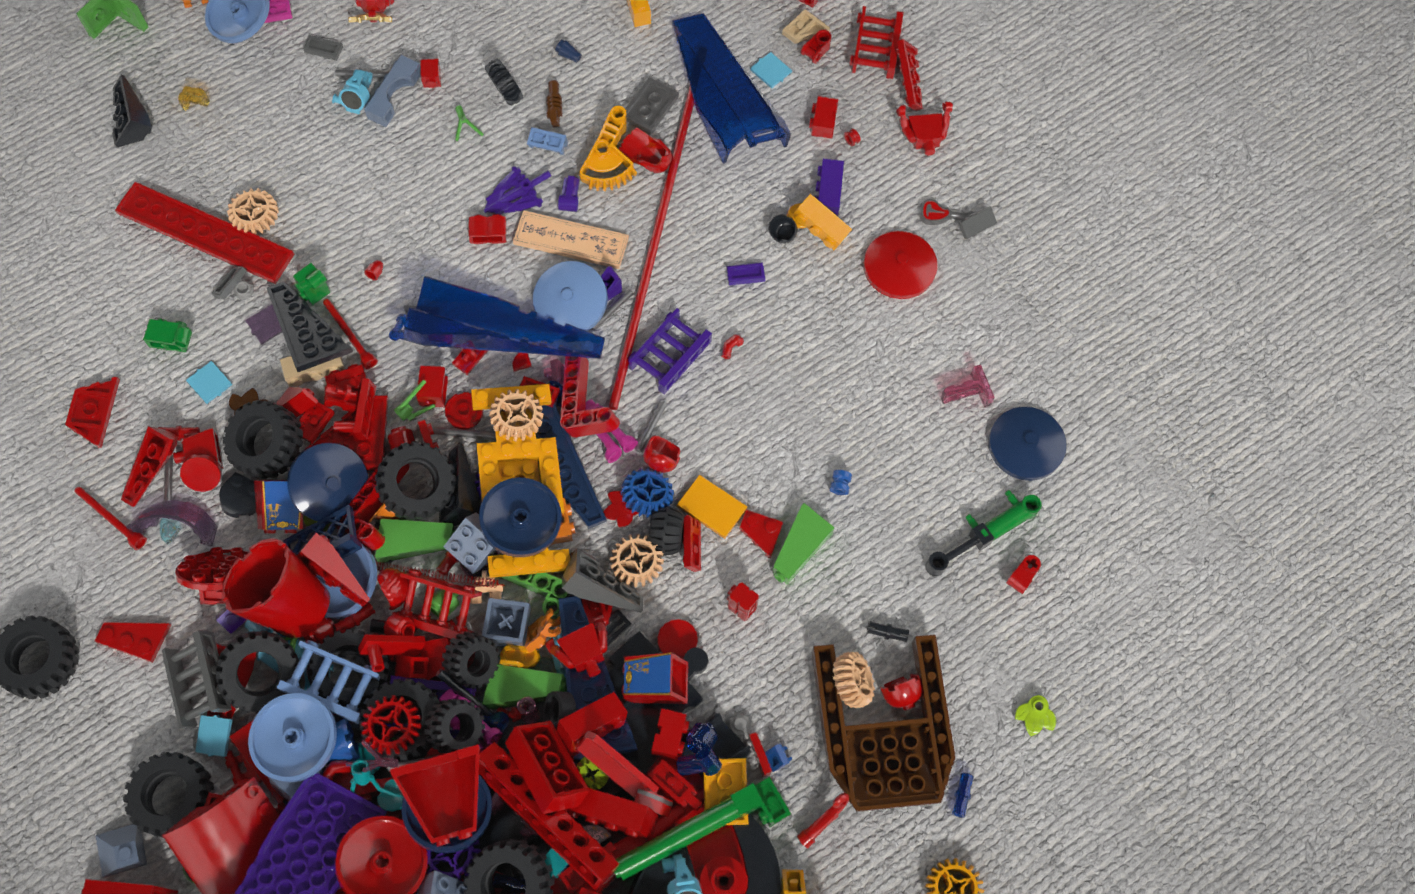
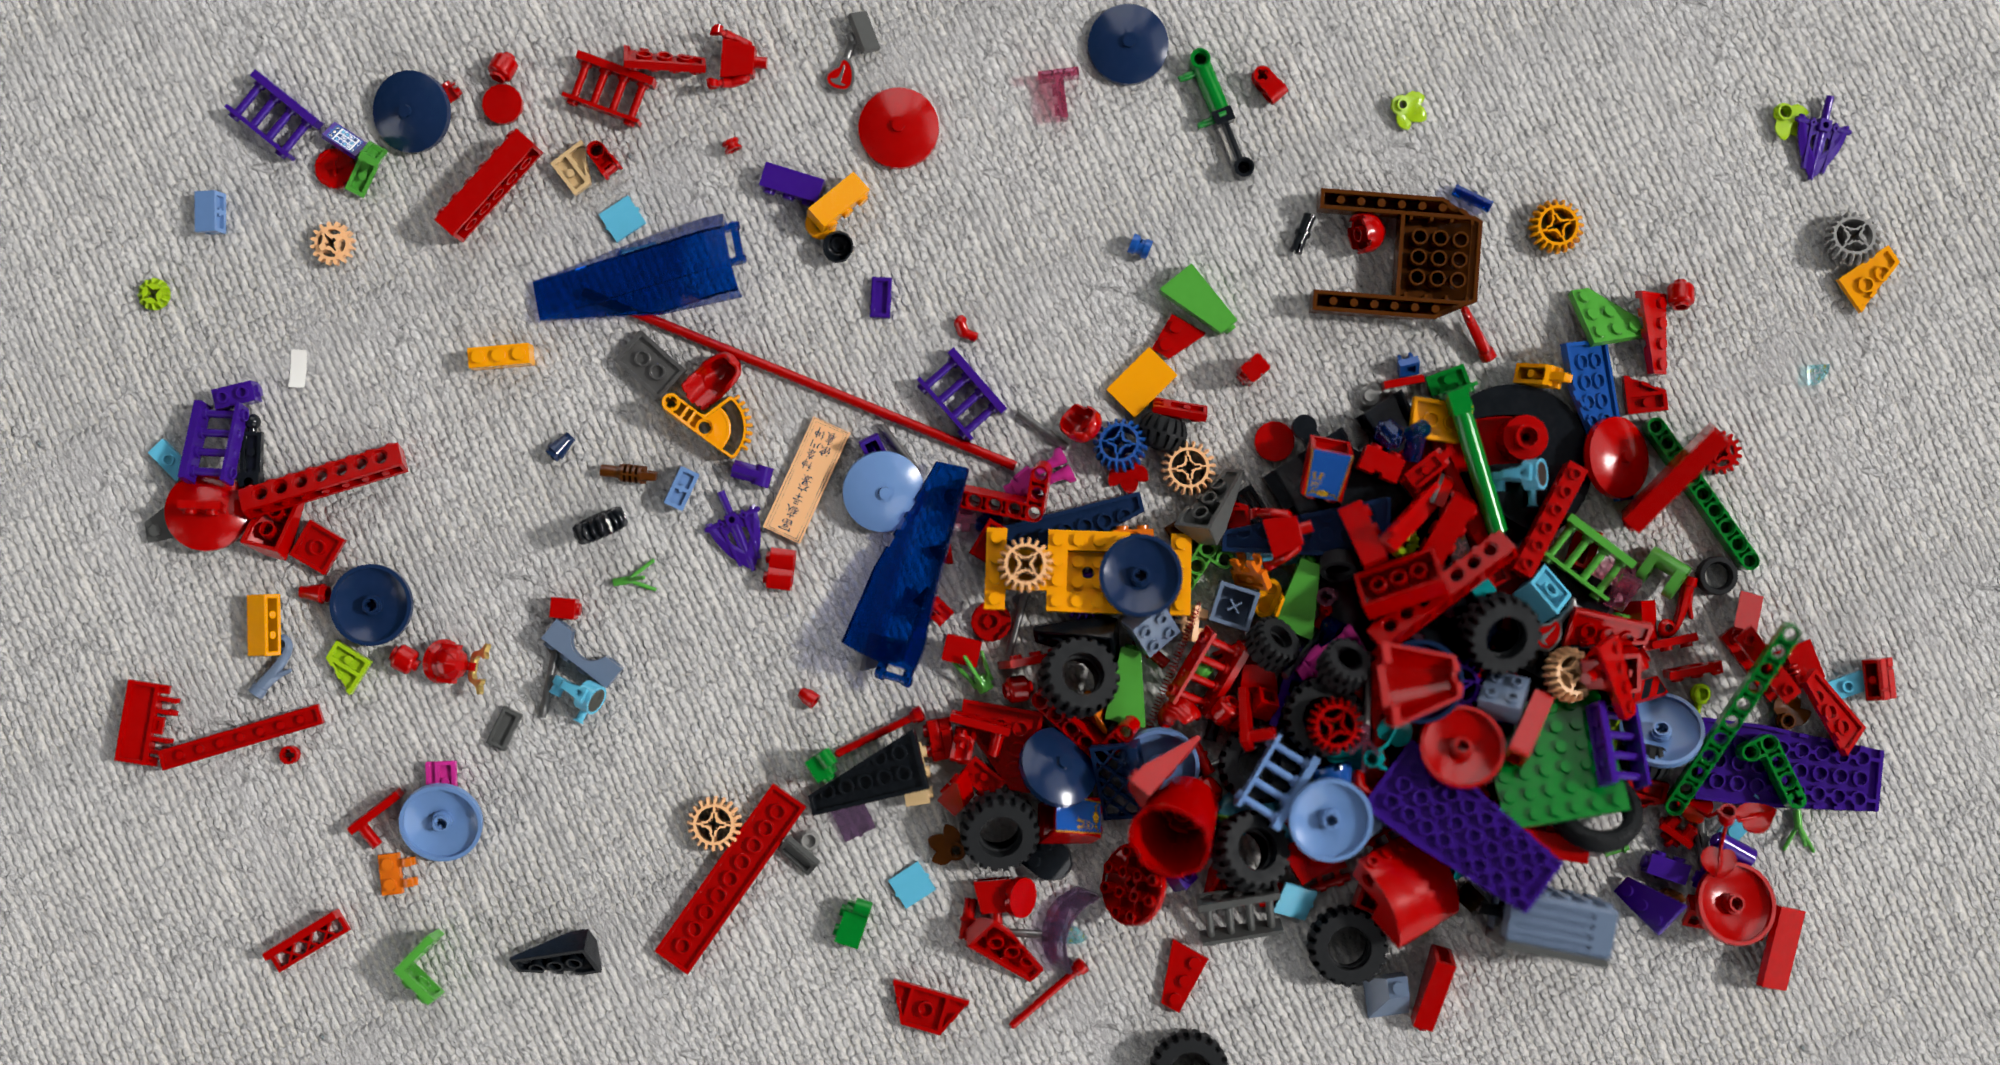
camera: 75 degrees left, 20 degrees up
(193, 95) = (549, 876): clear yellow bracket -> none
(824, 118) = (704, 174): red brick -> none
(853, 679) = (1351, 277): light nougat gear -> none

